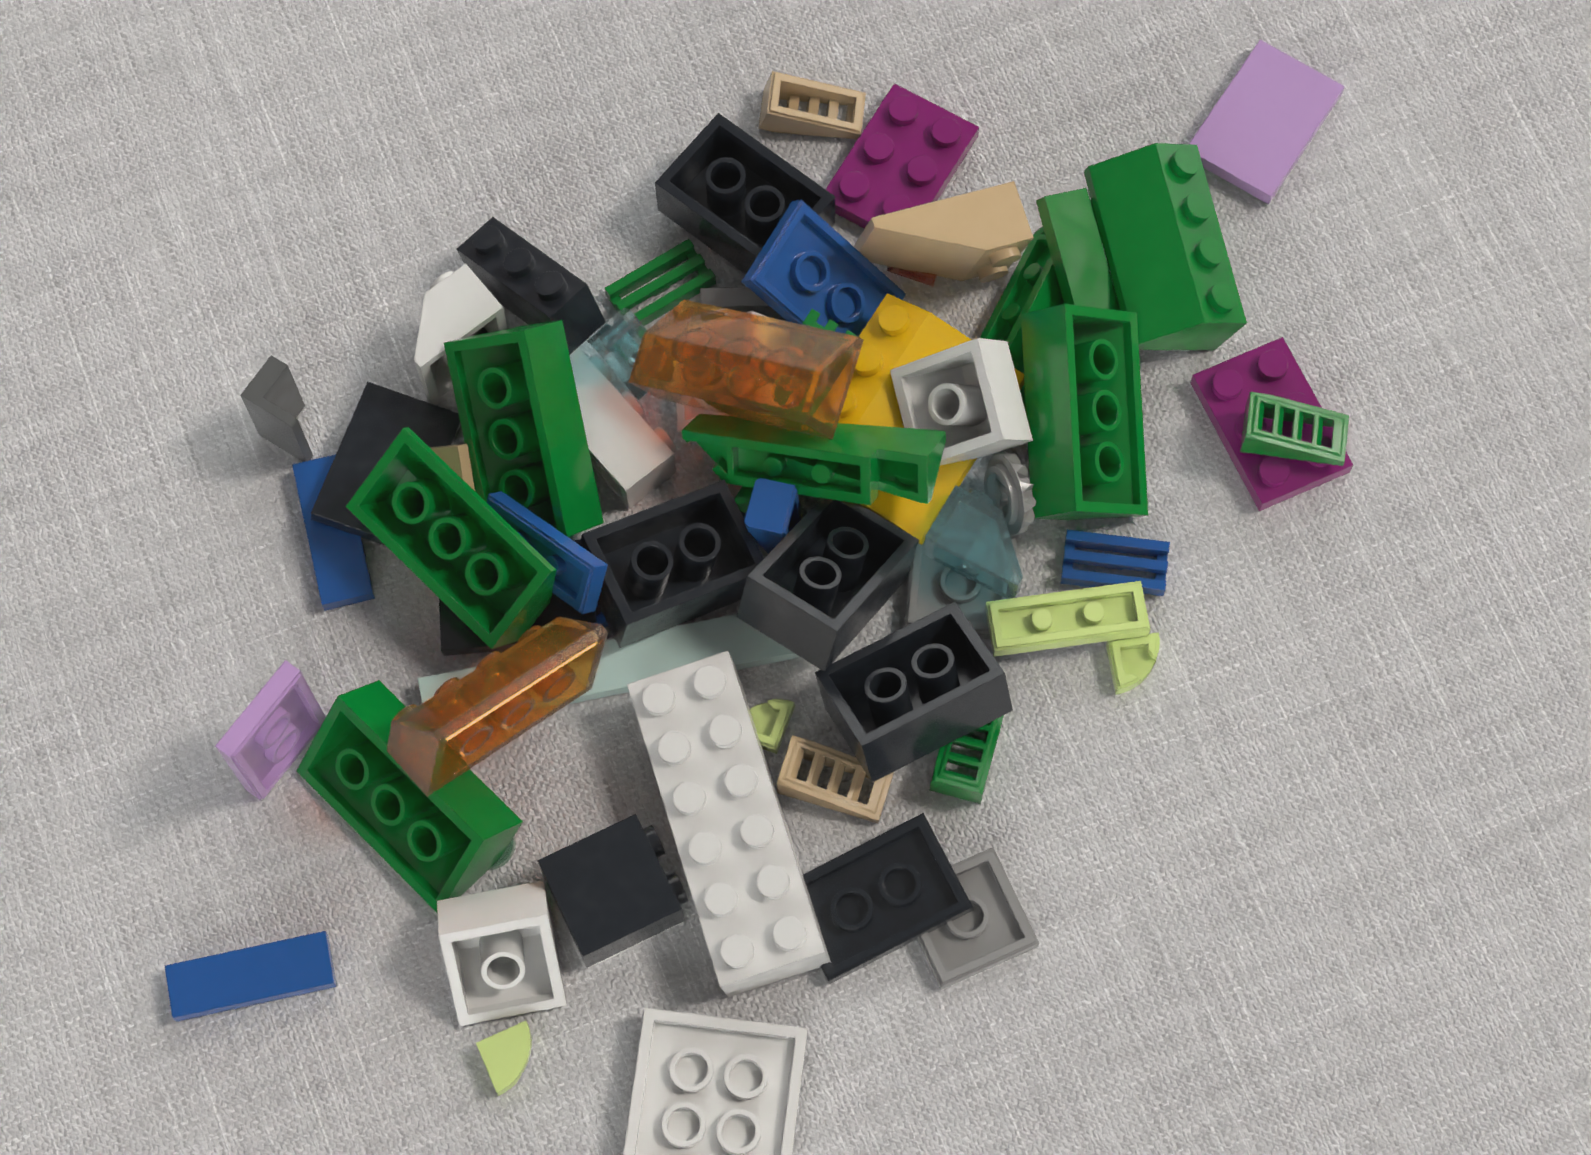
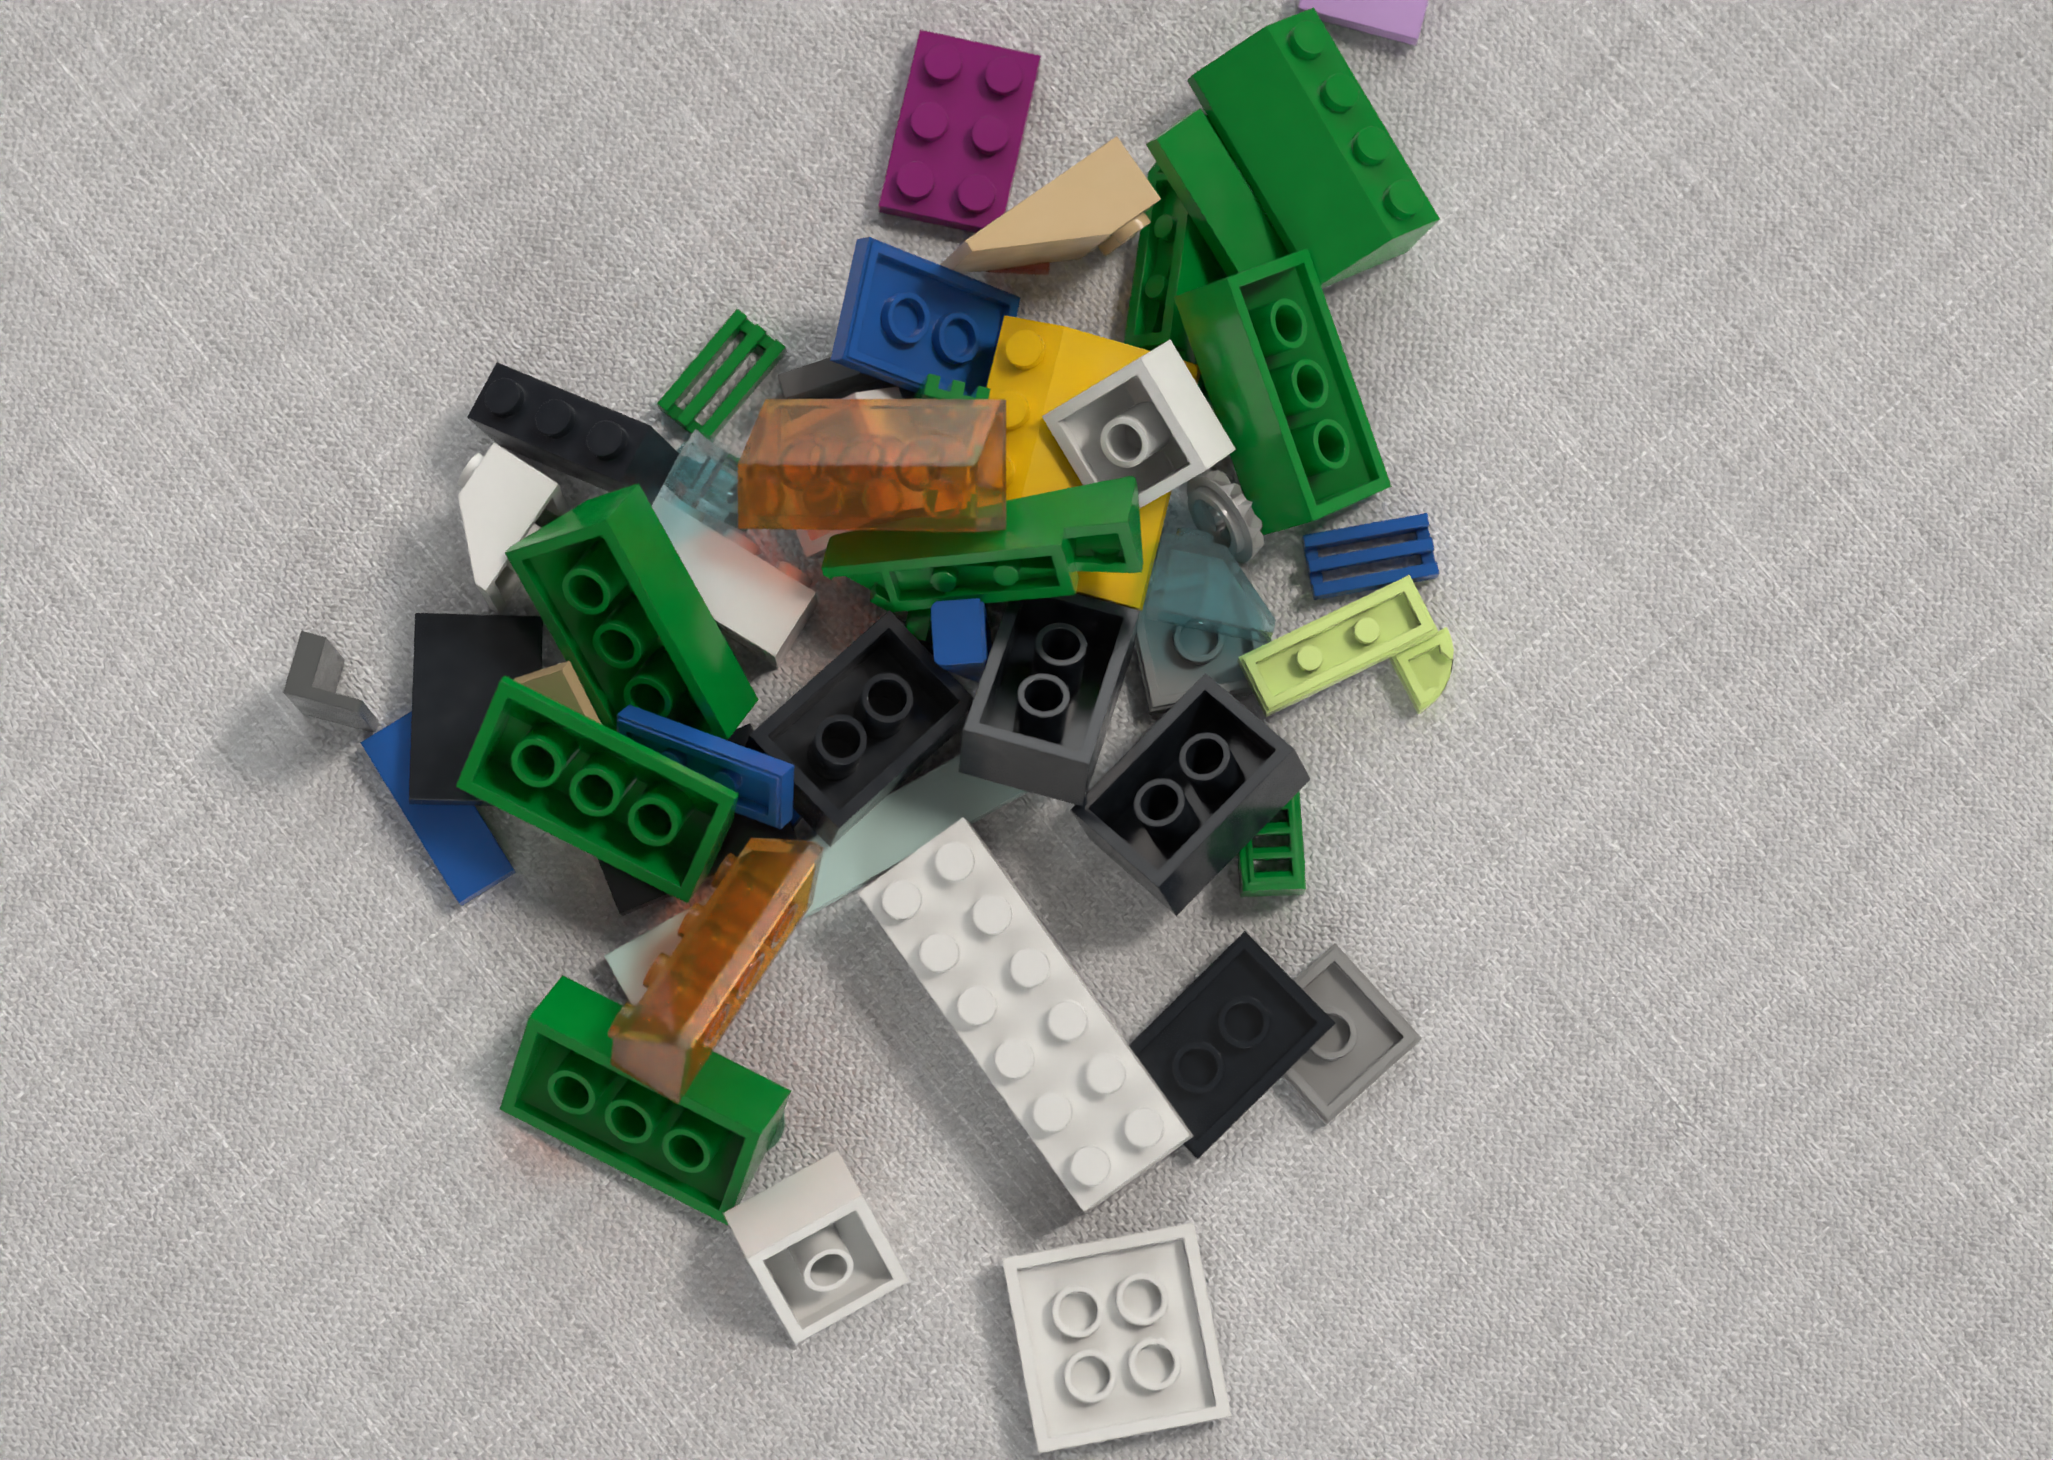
camera: 20 degrees left, 10 degrees up
(250, 976) = (535, 1365): blue tile -> none
(272, 731) = (468, 1082): lavender tile -> none
(506, 1055) = (861, 1361): yellowish green tile -> none
(614, 889) = (920, 1133): black piece -> none
(734, 192) = (782, 239): black brick -> none
(772, 721) = (1032, 875): yellowish green tile -> none
(792, 121) = (810, 116): tan slope -> none
(809, 791) = (1078, 945): tan slope -> none
(1224, 394) = (1500, 326): magenta plate -> none
(1282, 409) = (1483, 344): green slope -> none

